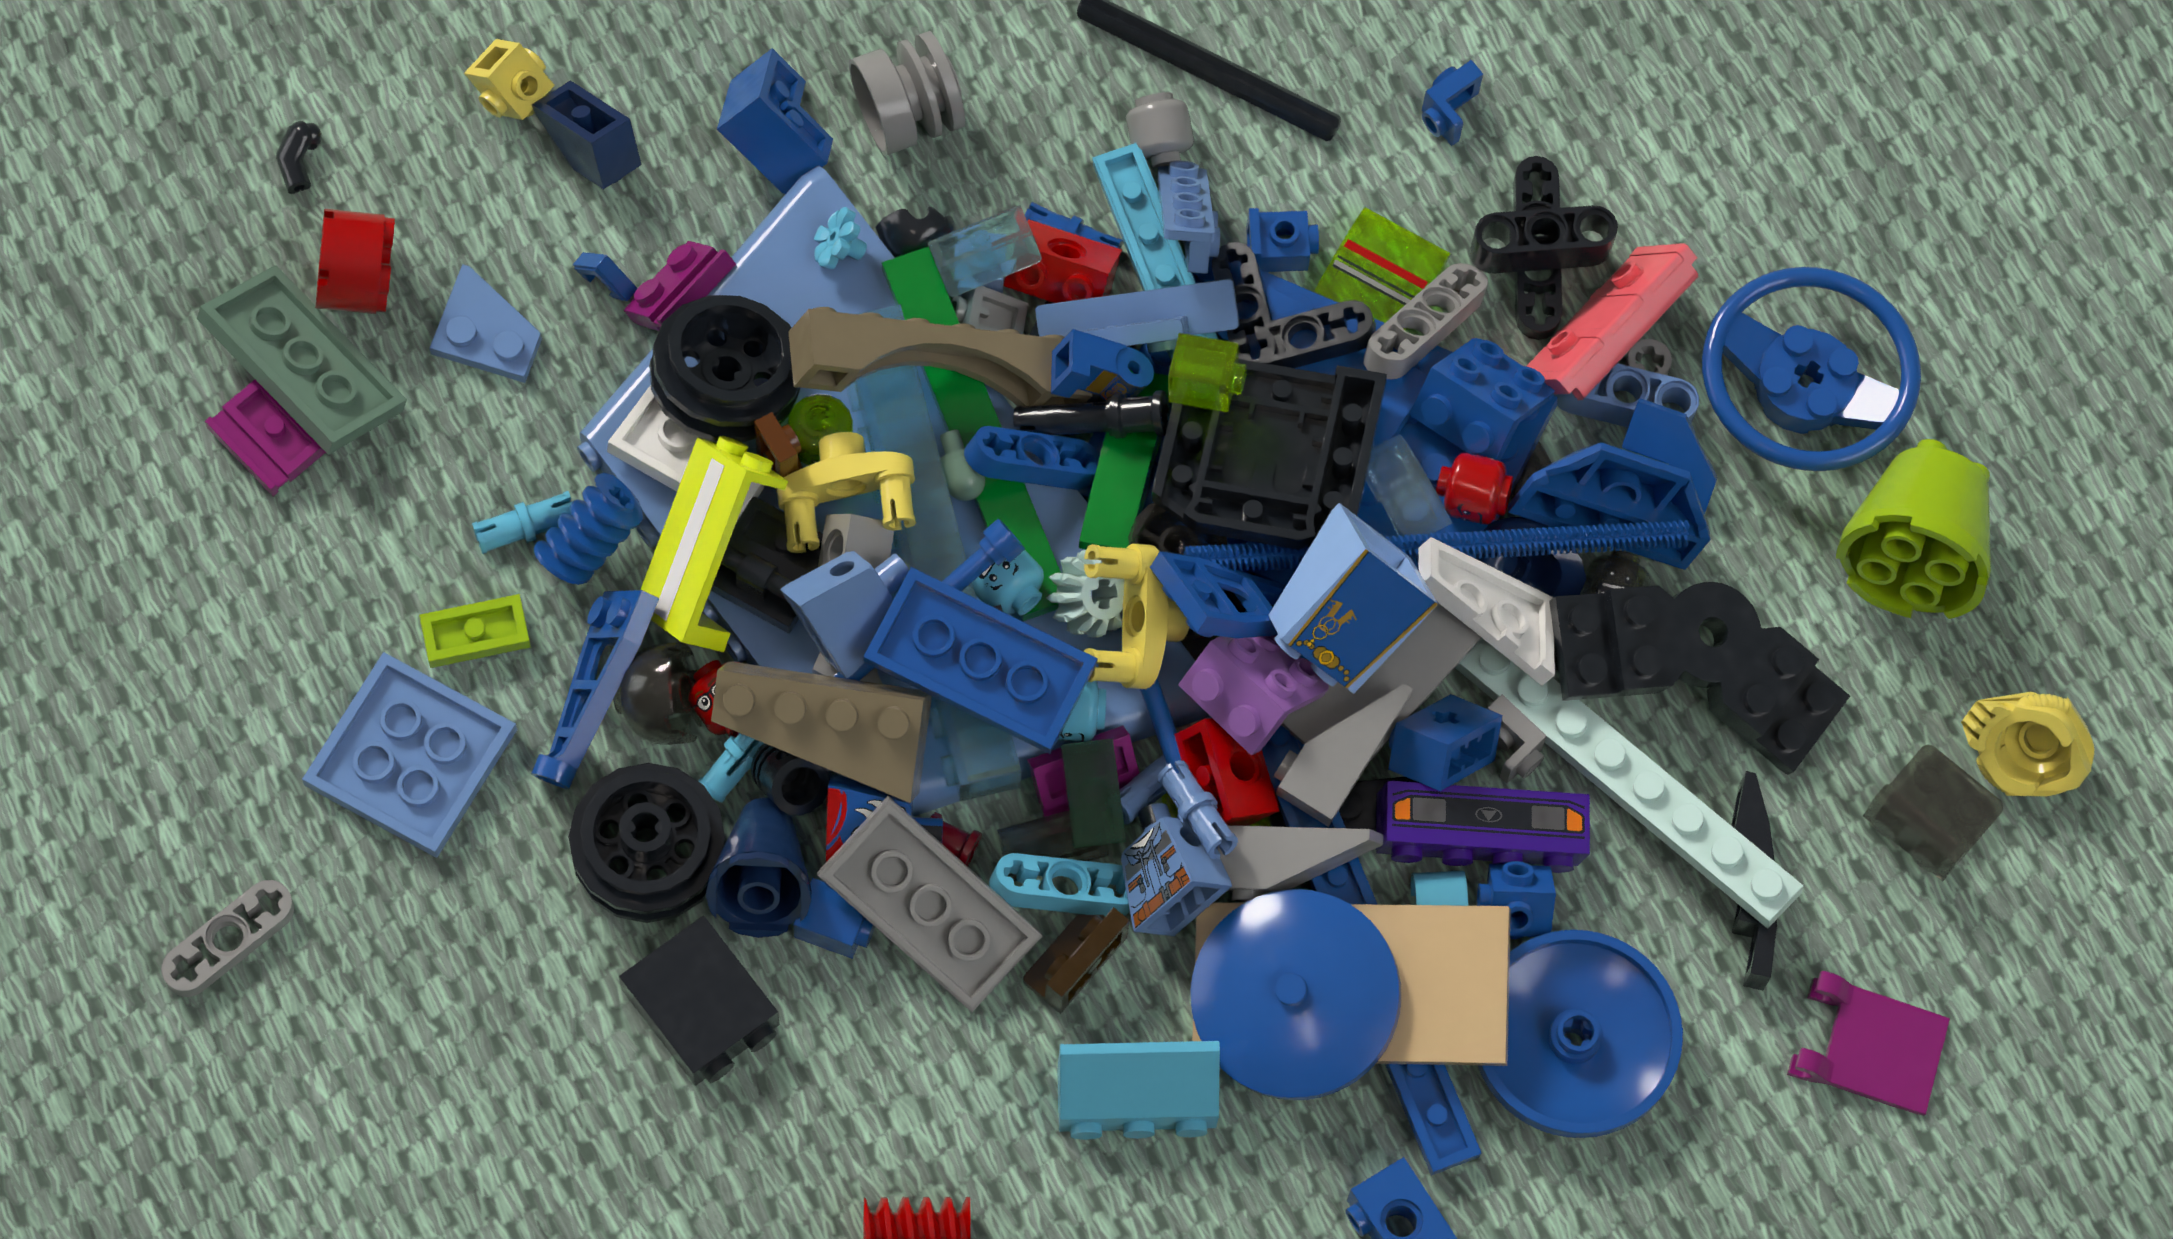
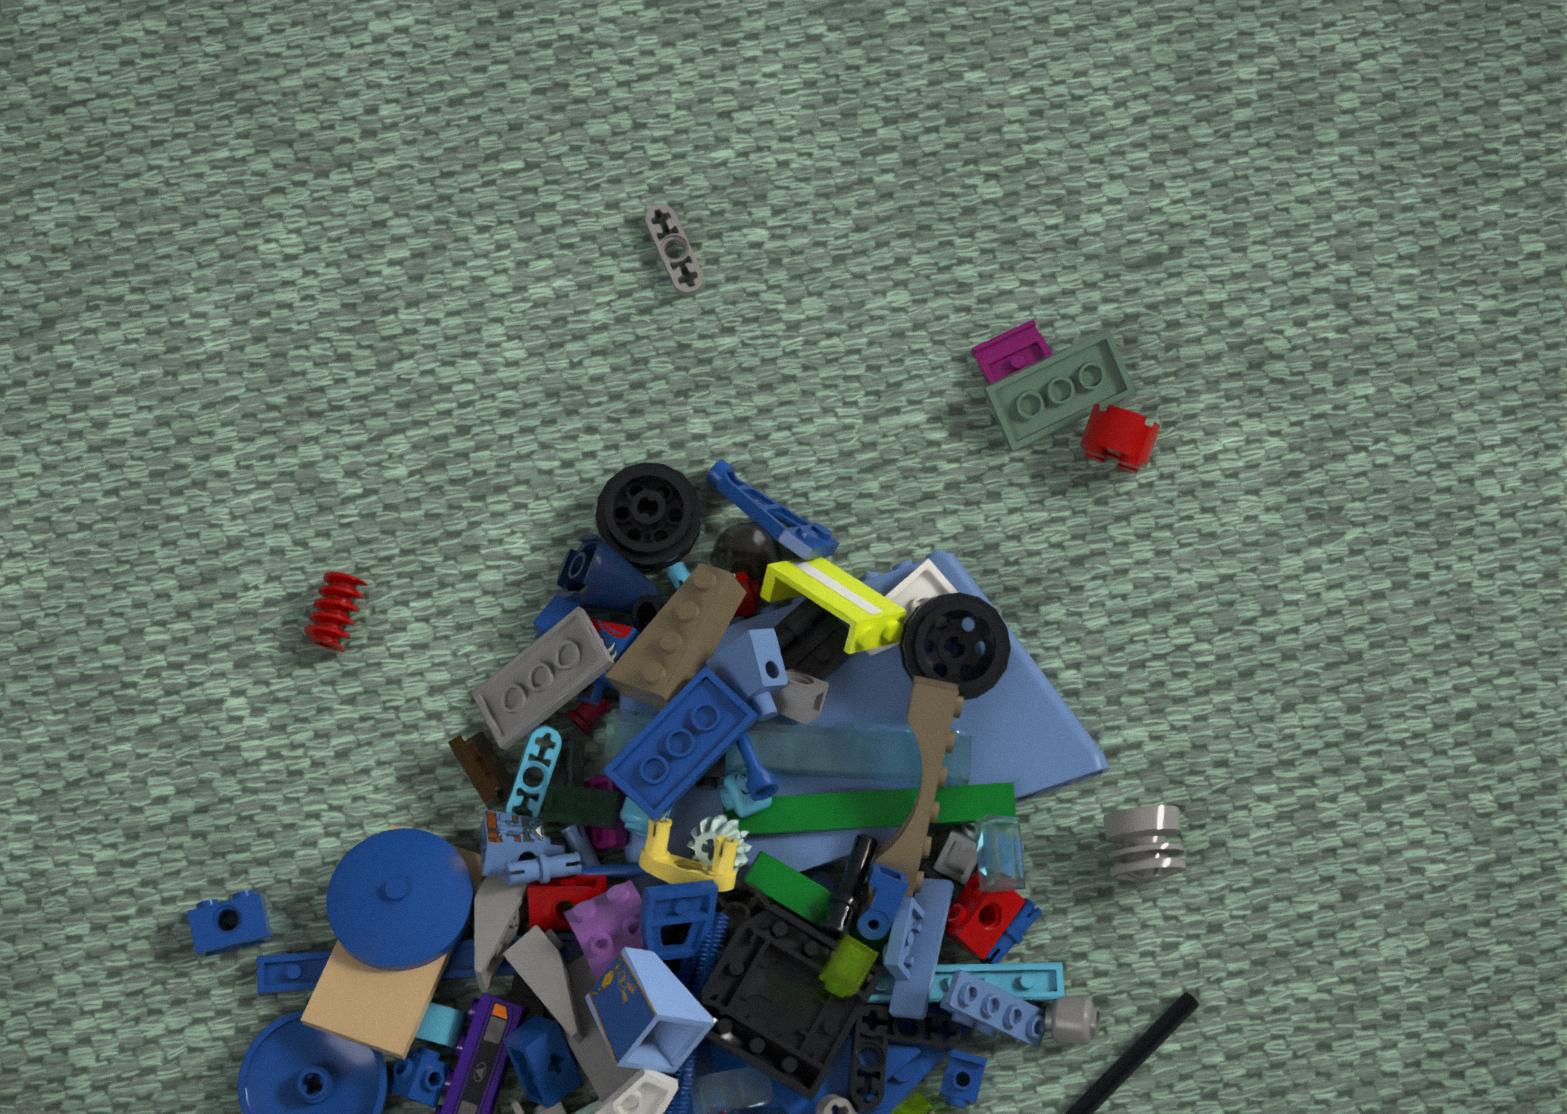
camera: 110 degrees right, 5 degrees up
(292, 151) = (1218, 424): black arm -> none
(409, 754) = (761, 389): medium blue plate -> none
(474, 631) = (834, 451): lime plate -> none
(485, 330) = (1052, 516): medium blue wing -> none
(509, 79) = (1231, 577): light yellow brick -> none
(521, 523) = (903, 504): medium azure pin -> none
(589, 134) = (1176, 619): dark blue slope -> none
(591, 530) = (876, 537): blue piece -> none
(600, 265) = (1068, 604): blue tile -> none
(688, 276) = (1043, 648): magenta plate -> none
(700, 1002) = (532, 521): black brick -> none
(769, 125) = (1150, 743): blue panel -> none
(777, 445) = (881, 664): reddish brown plate -> none
(815, 418) = (888, 689): clear neon green head -> none
(839, 239) = (1037, 757): medium azure plant -> none
(843, 473) = (855, 701): light yellow connector -> none
(907, 234) = (1028, 811): black hair -> none
(961, 479) = (839, 786): sand green cylinder -> none
(1001, 455) = (826, 824): blue beam -> none
(1138, 1088) = (376, 777): medium azure slope -> none

